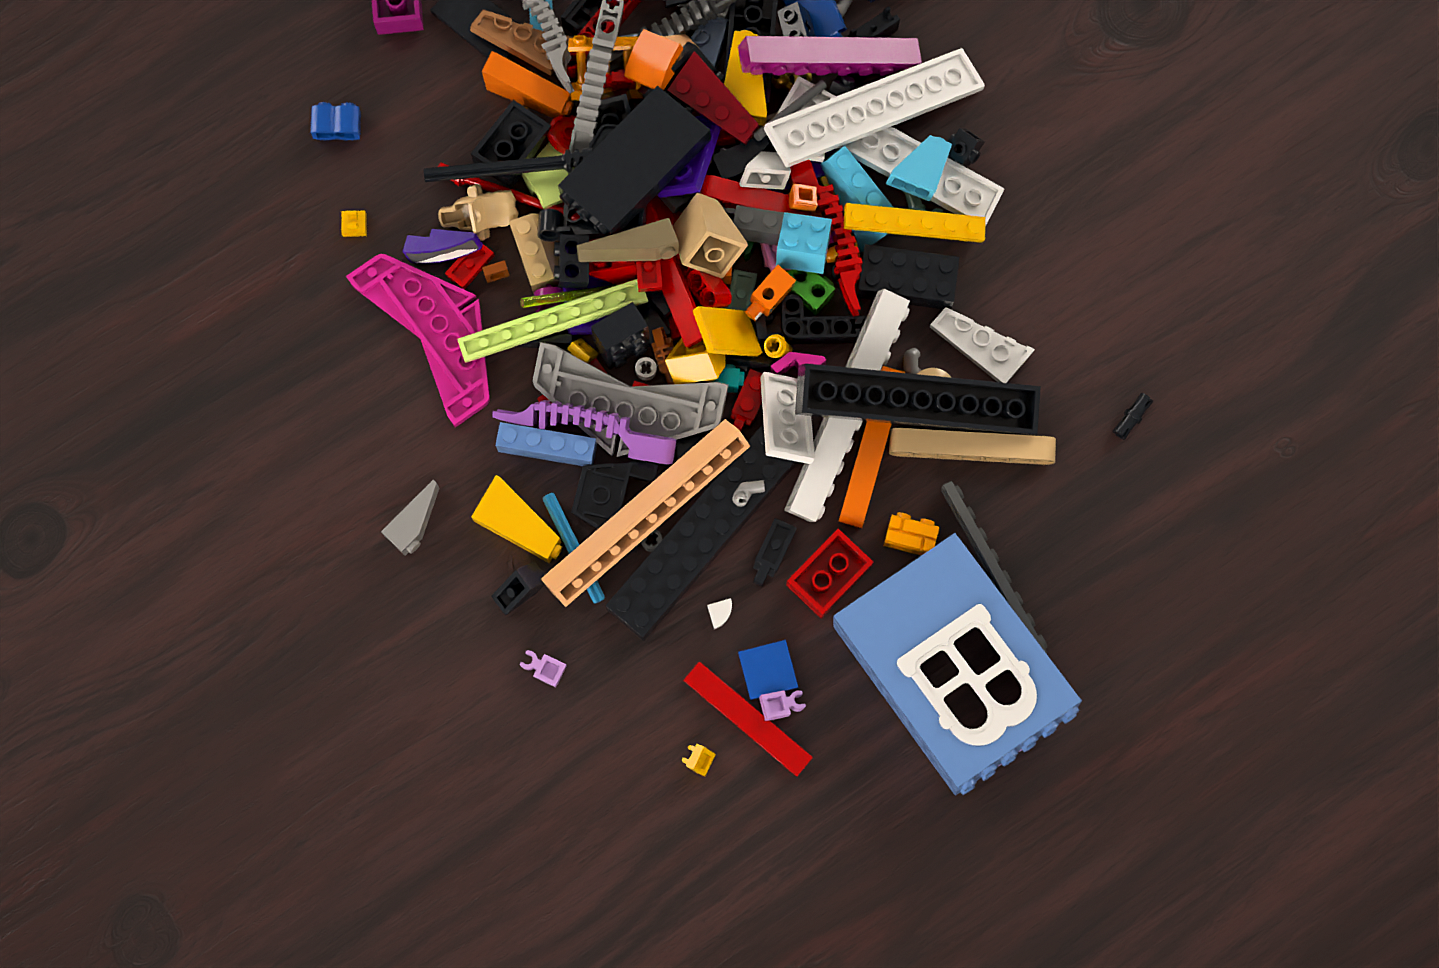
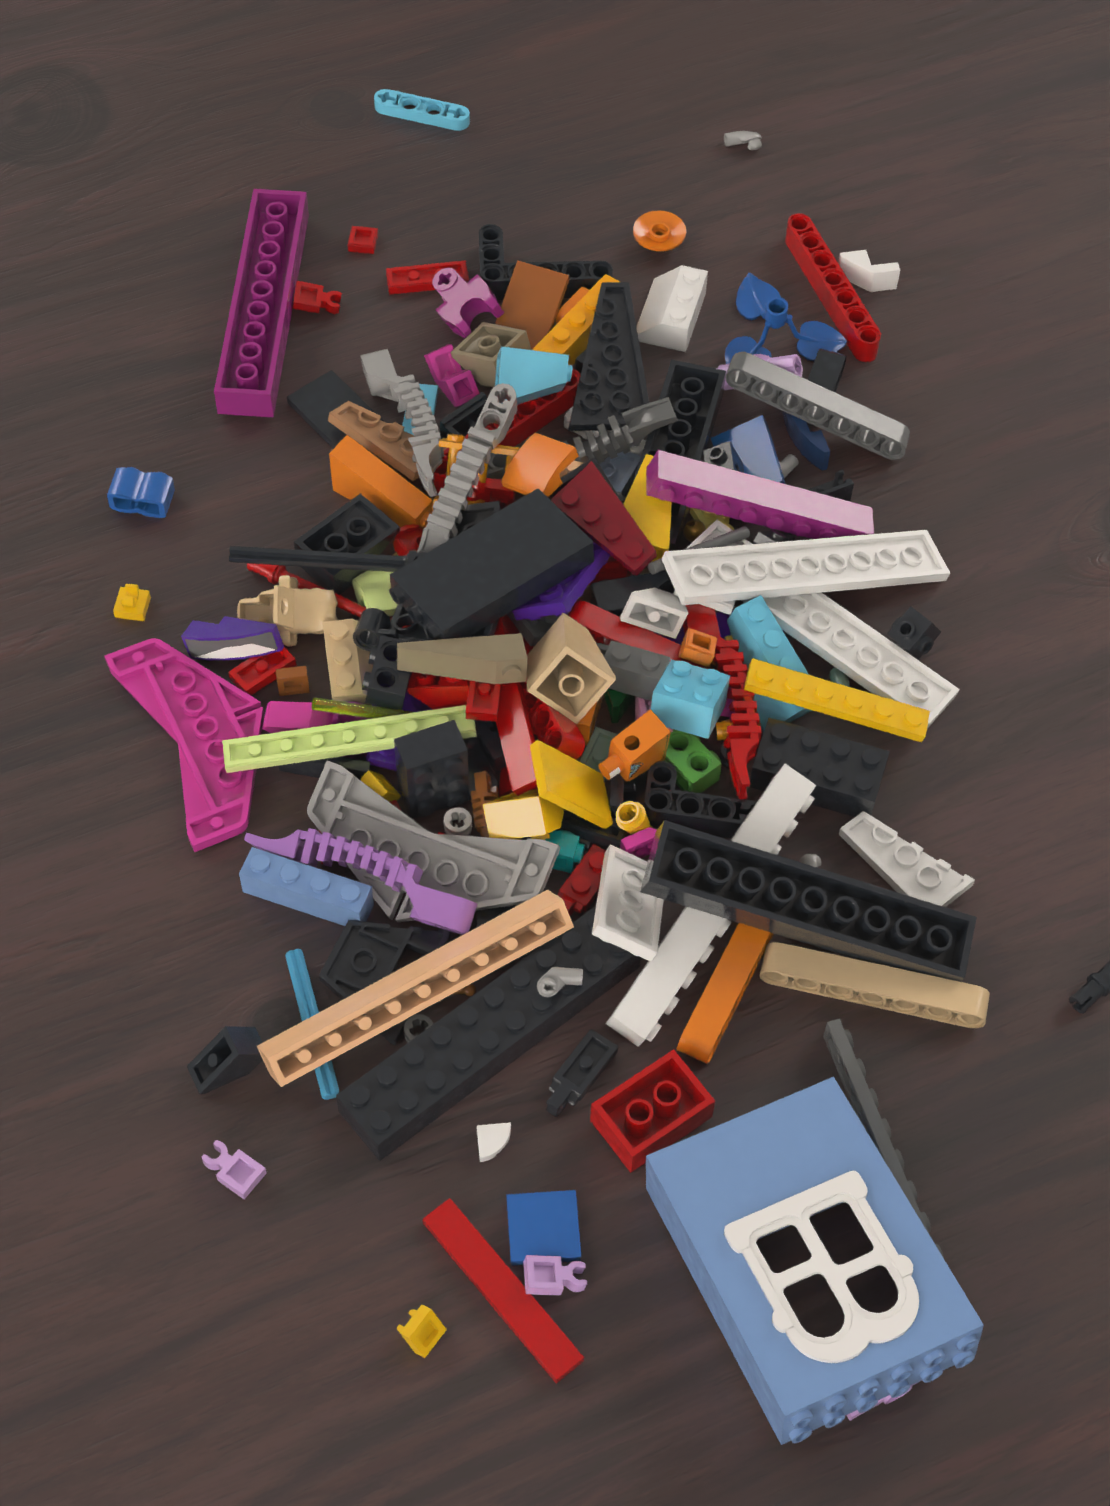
camera: 10 degrees right, 20 degrees down
(410, 524) = (104, 954): light grey slope -> none
(505, 305) = (289, 716): none -> dark pink slope
(515, 521) = (242, 975): yellow slope -> none
(911, 535) = (769, 1079): light orange brick -> none
(922, 168) = (853, 641): medium azure slope -> none

